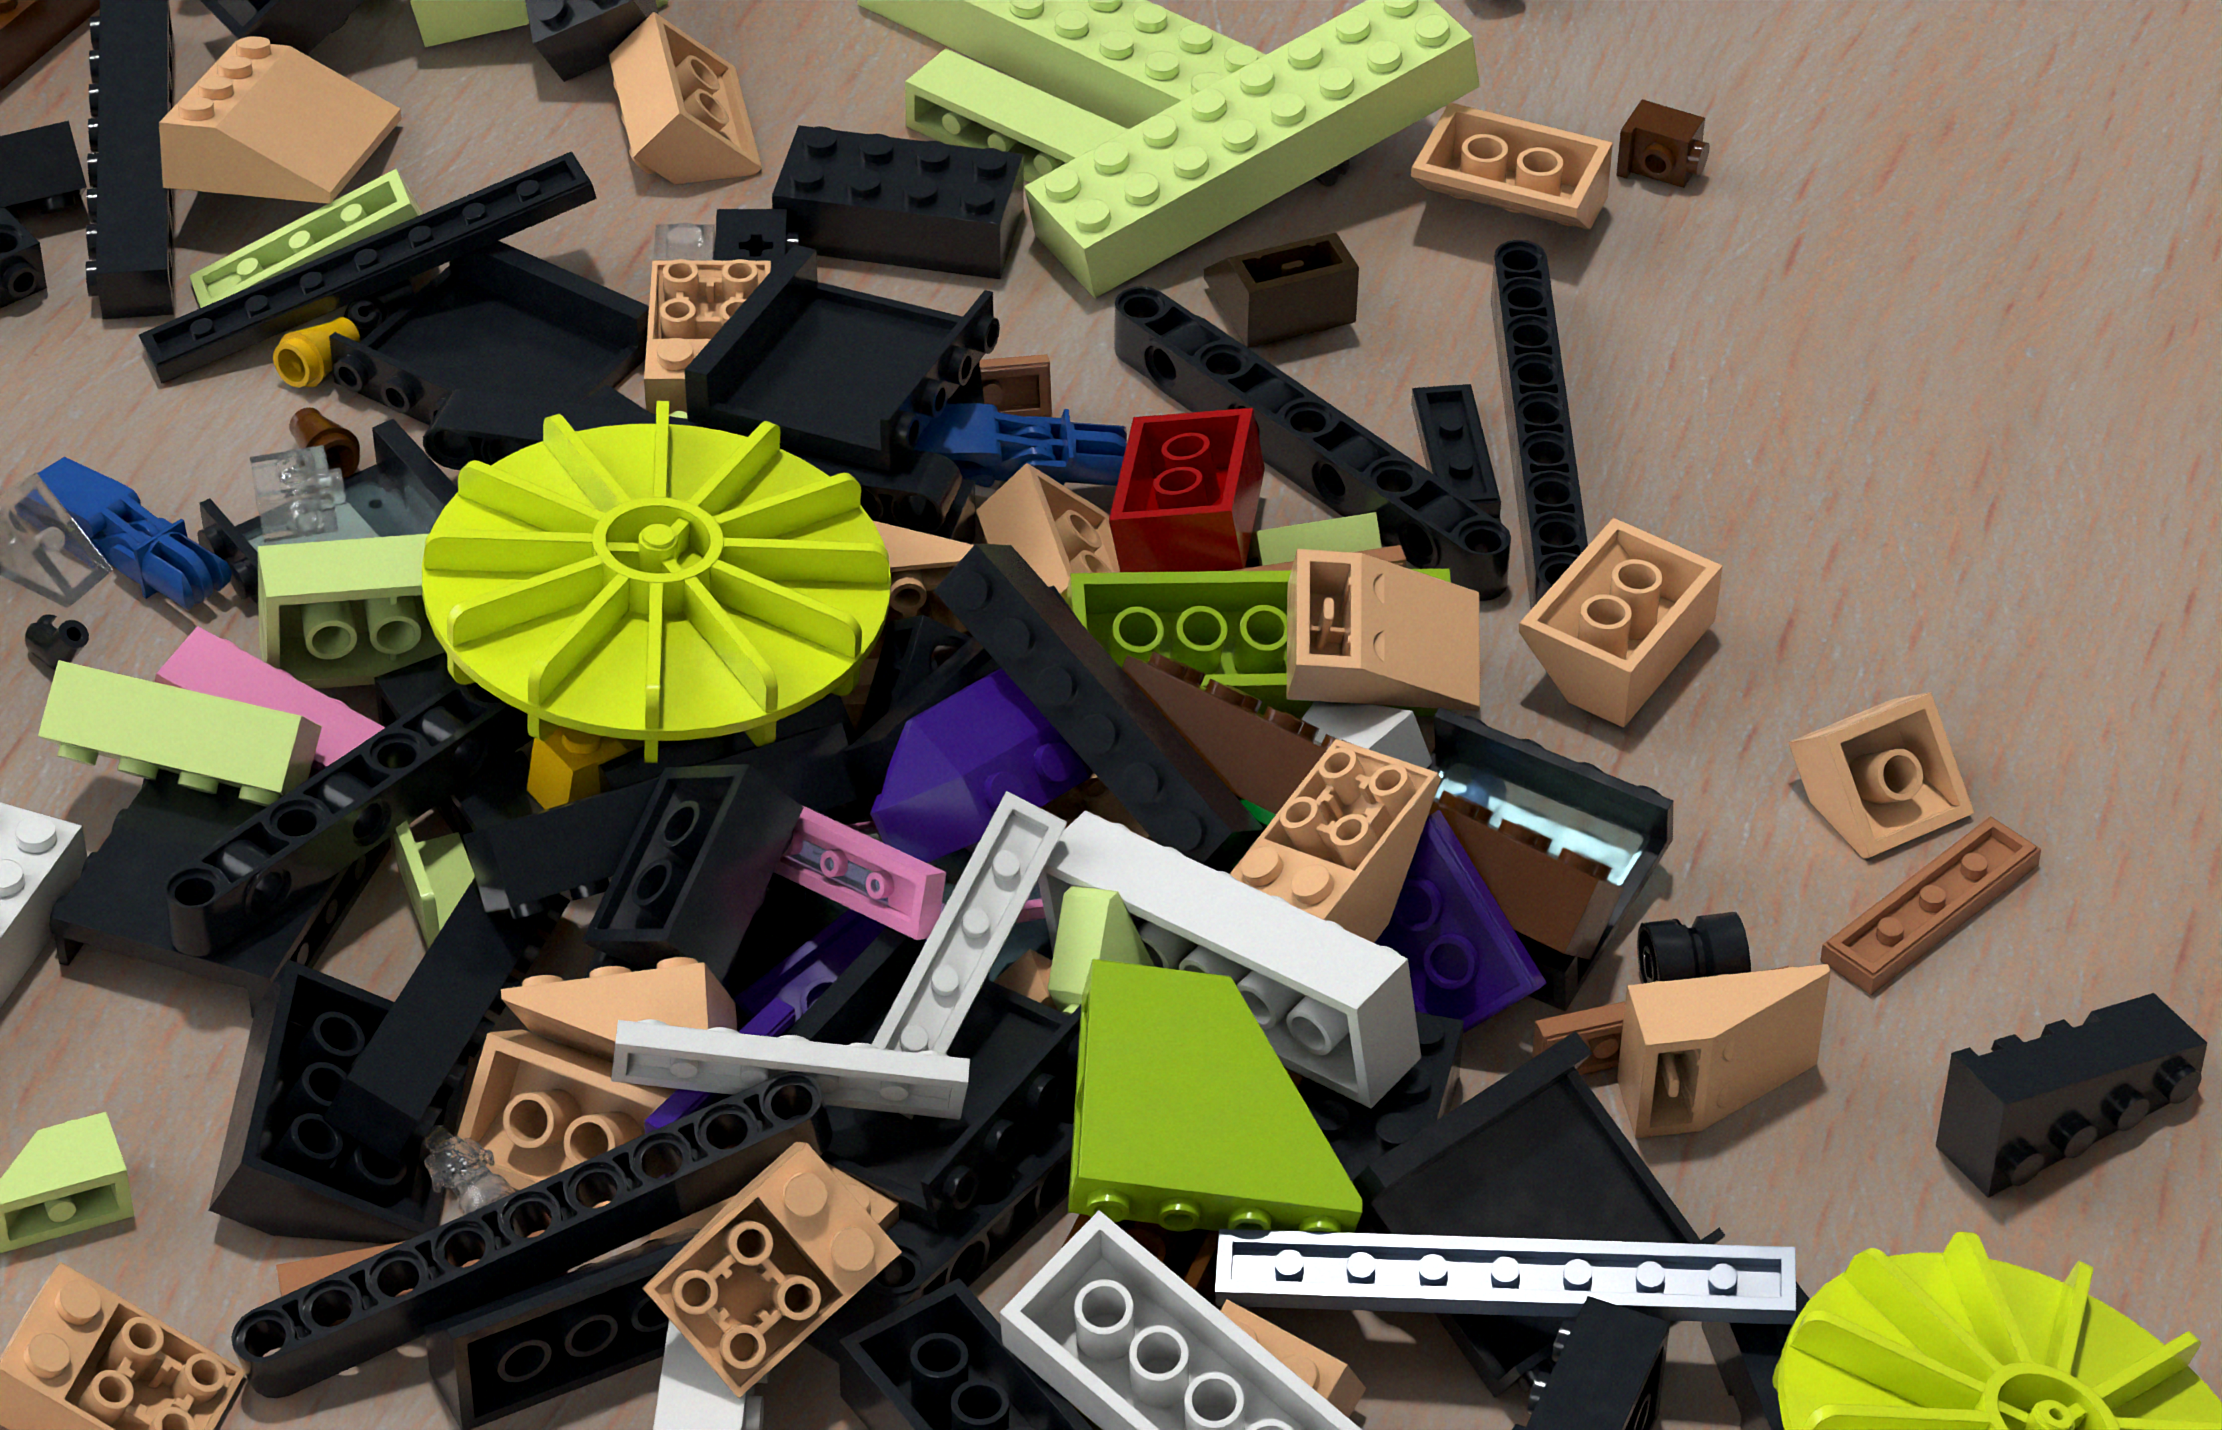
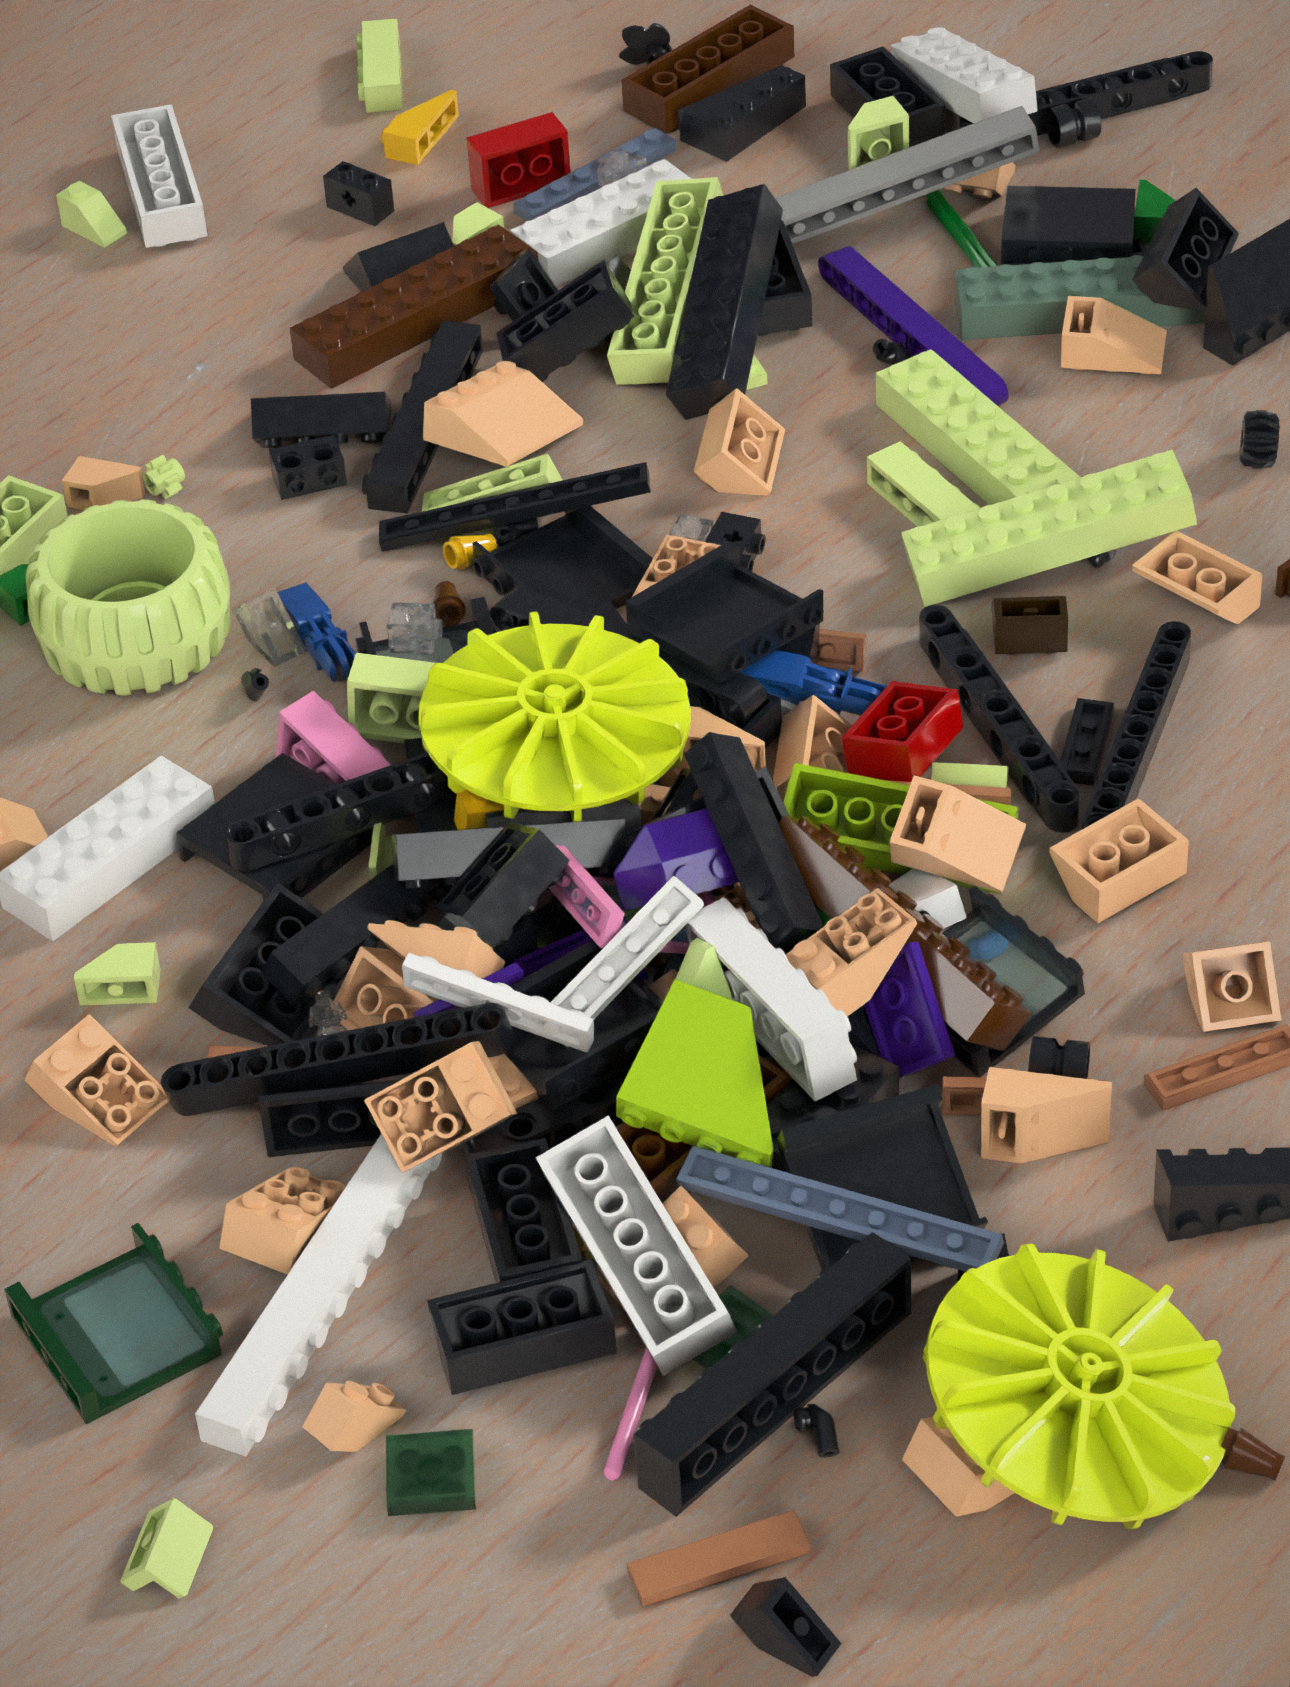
camera: 25 degrees right, 0 degrees up
(177, 732) = (276, 746): yellowish green brick -> none
(902, 200) = (832, 527): black brick -> none

